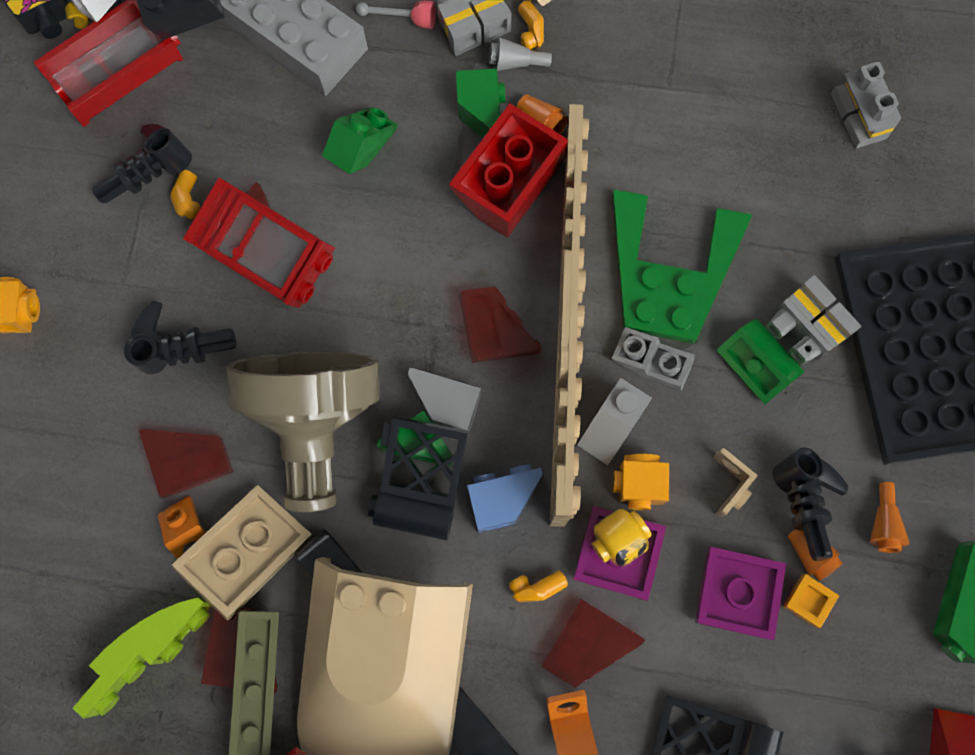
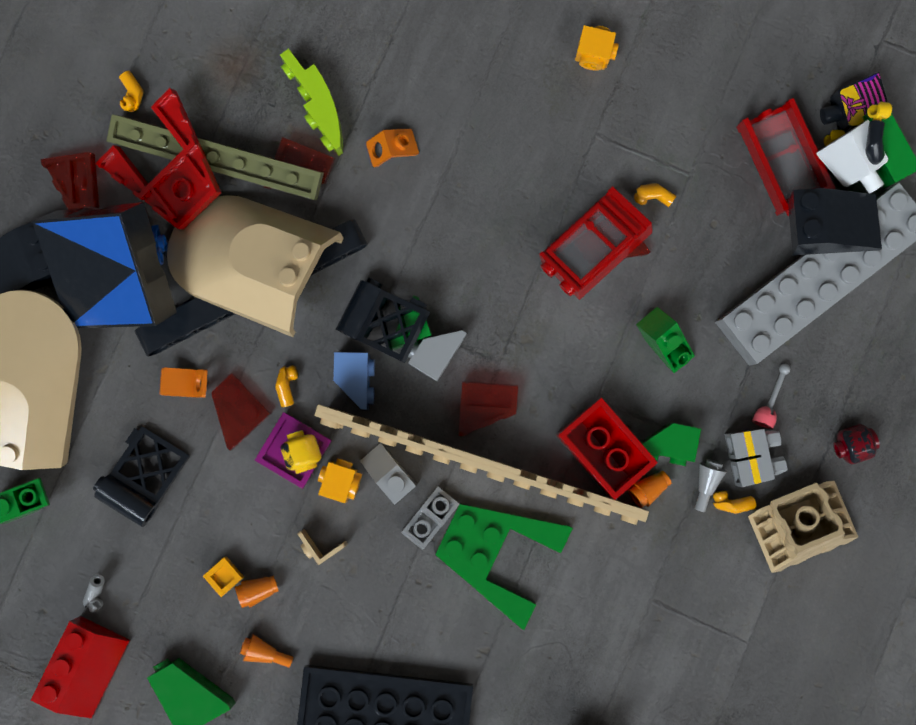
camera: 105 degrees right, 10 degrees up
(162, 151) = (692, 183): black piece -> none
(169, 350) = (530, 159): black piece -> none
(184, 459) = (446, 154): clear red wing -> none
(242, 552) = (365, 183): tan plate -> none
(304, 402) = (460, 250): dark tan piece -> none
(740, 593) = (242, 528): magenta plate -> none
(760, 360) = (406, 599): green panel -> none
(798, 312) = (412, 648): light grey hips -> none
(801, 480) = (299, 596): black piece -> none

